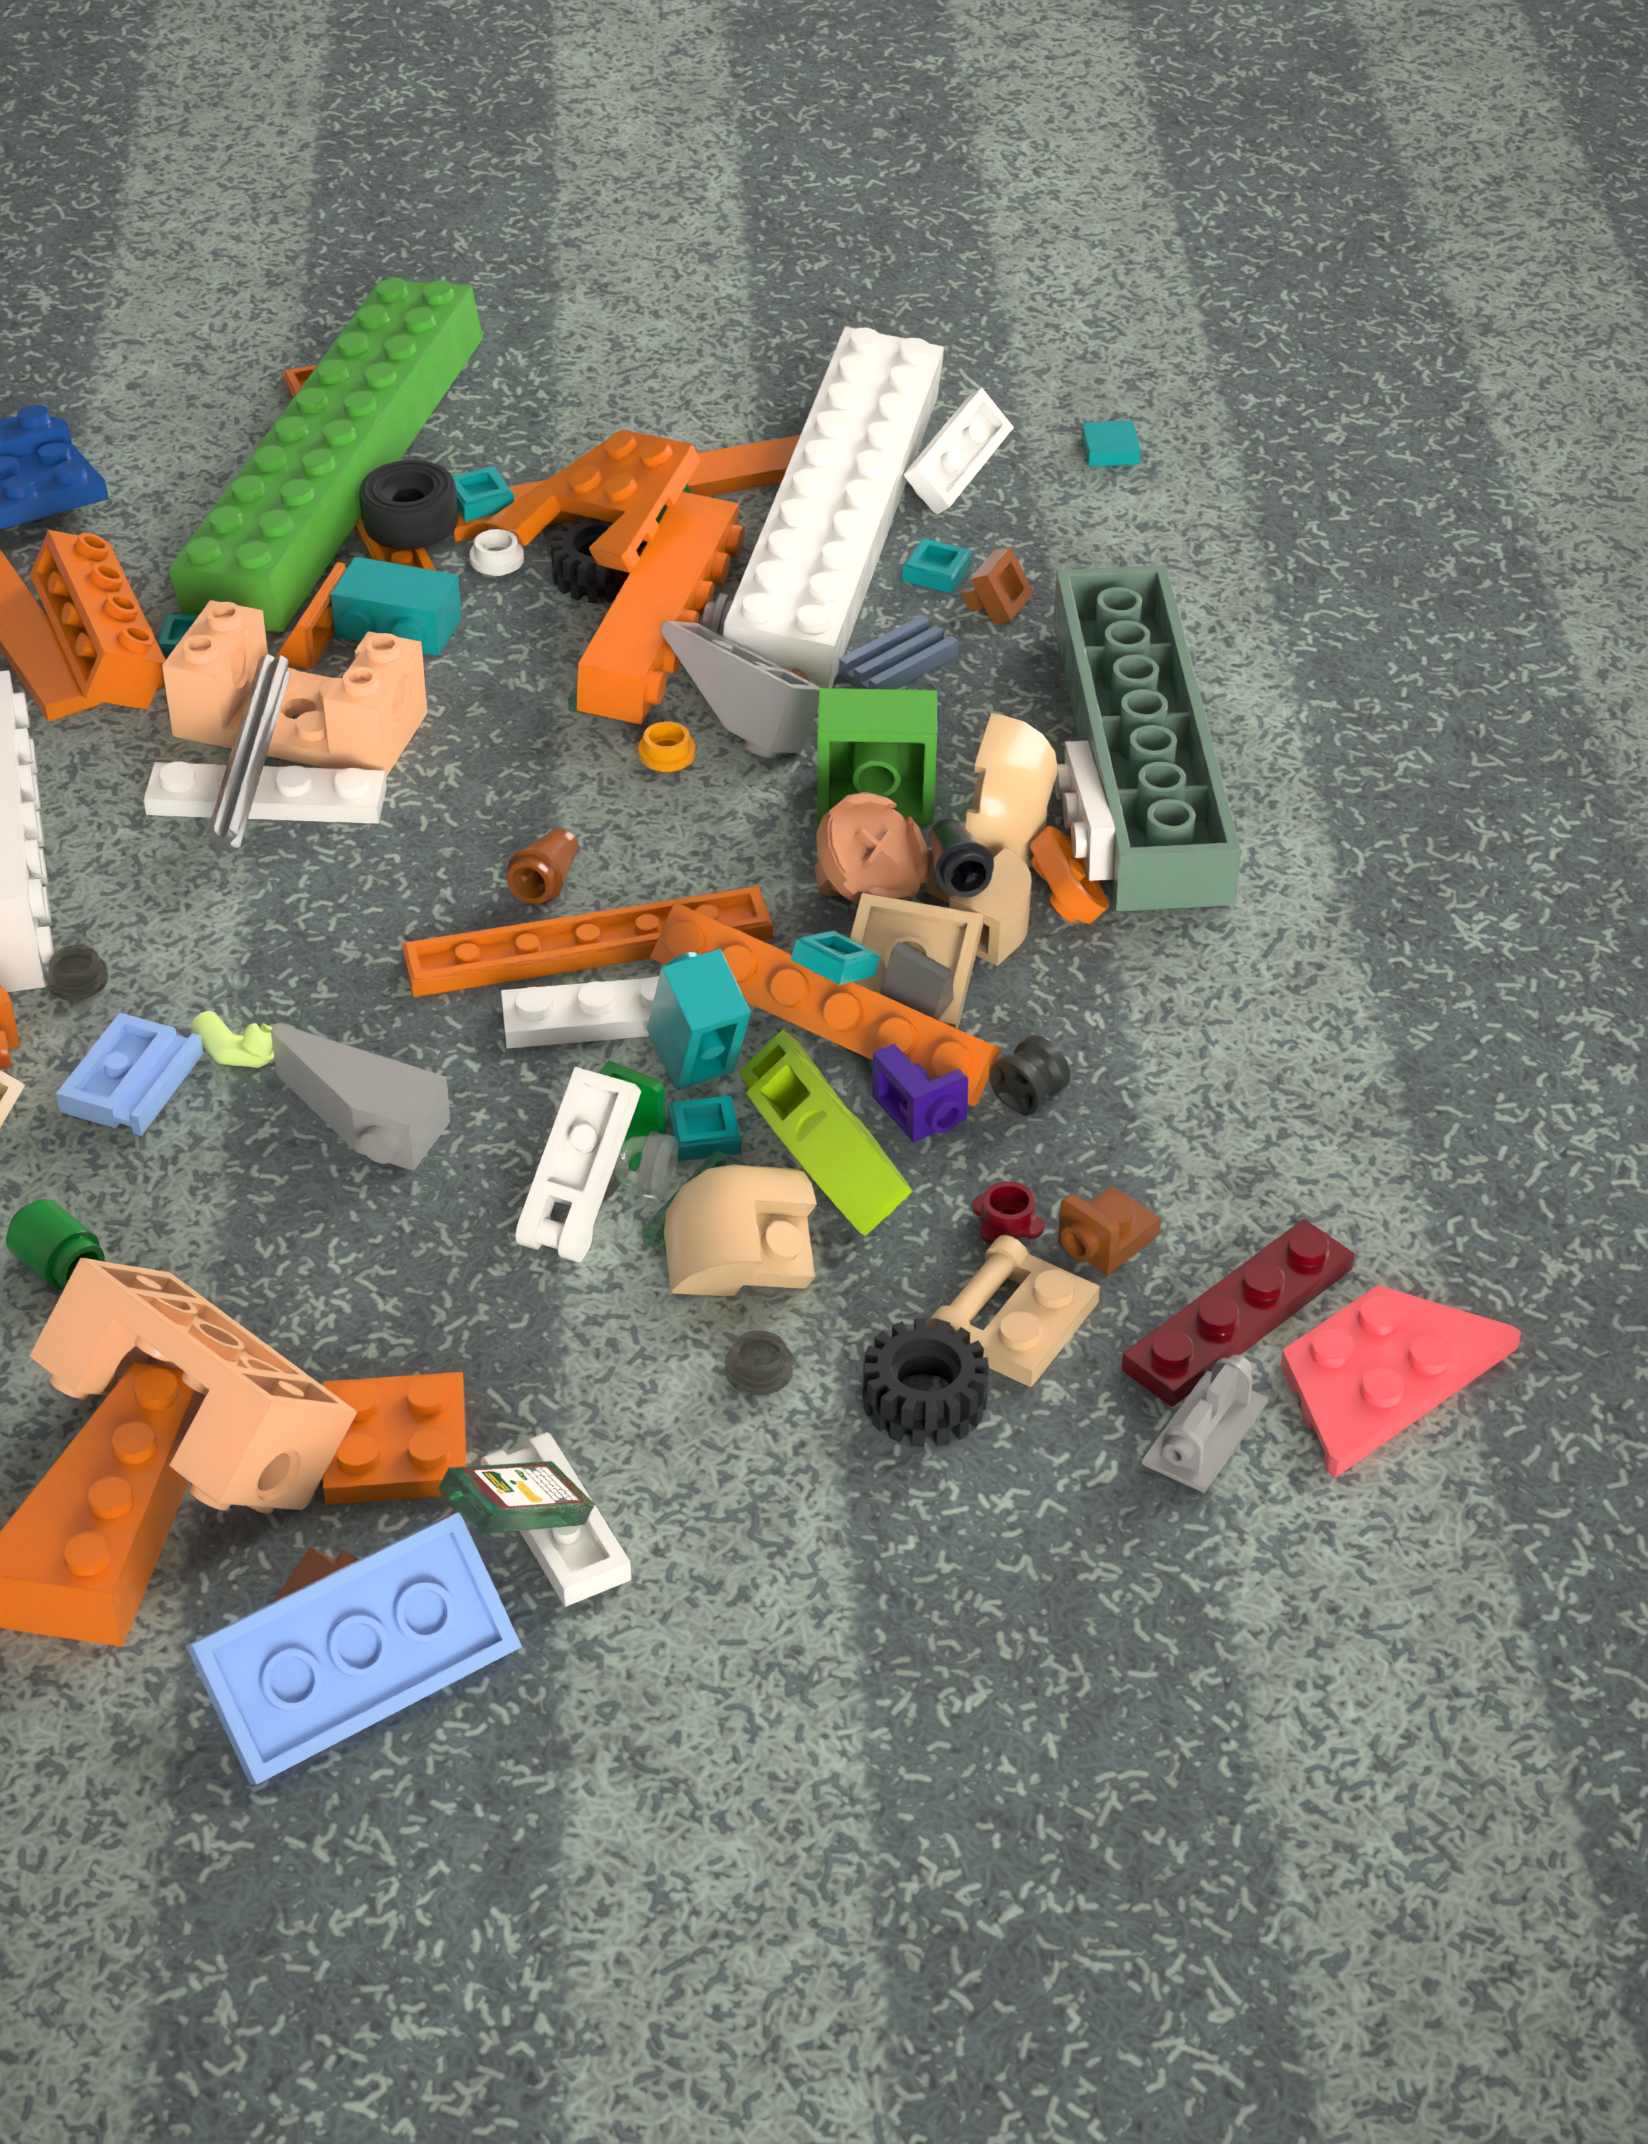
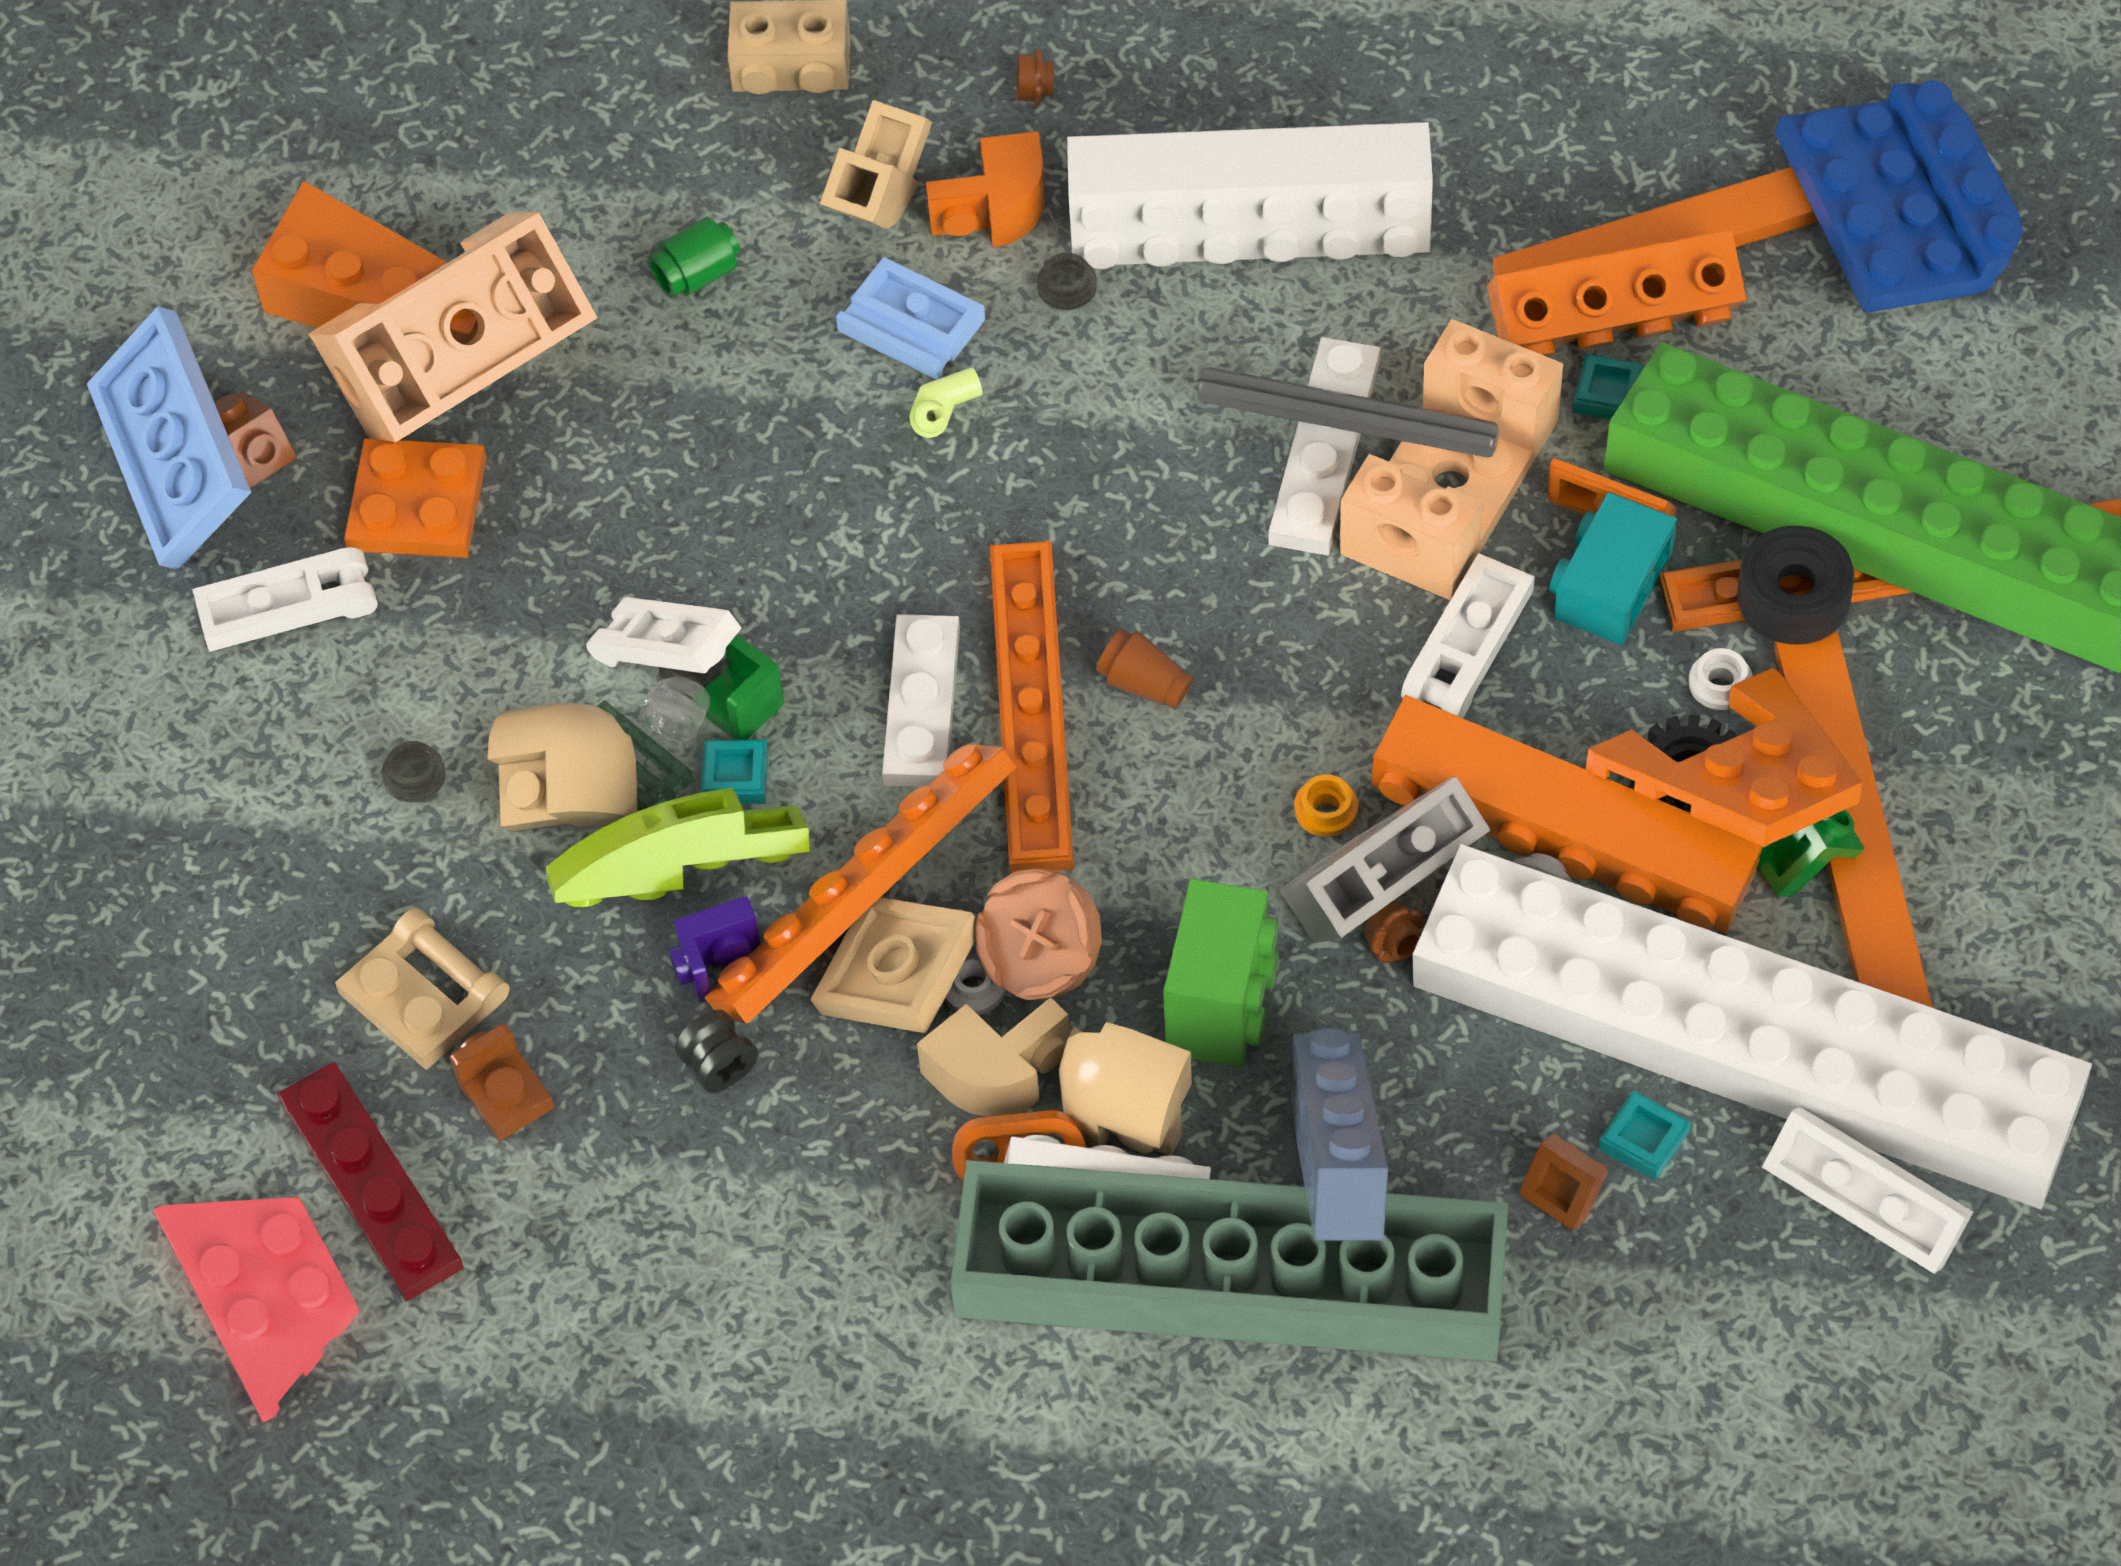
camera: 105 degrees right, 15 degrees up
(367, 1099) = (823, 489): light grey slope -> none
(481, 493) = (1826, 663): teal tile -> none
(489, 685) = (1469, 634): none -> white plate
(515, 1497) = (255, 539): clear green tile -> none
(698, 1018) = (820, 745): teal brick -> none
(835, 957) = (883, 877): teal tile -> none
(894, 651) = (1436, 1019): sand blue tile -> none
(917, 981) = (839, 953): dark grey slope -> none
(920, 1411) = (338, 863): black tyre -> none
(959, 859) = (998, 1003): black cone -> none
(1009, 1211) = (539, 989): dark red plate -> none
(1033, 645) = (1338, 1136): none -> sand blue brick
(1110, 443) = (1890, 1385): teal tile -> none
(1208, 1425) = (229, 1113): light grey hinge -> none

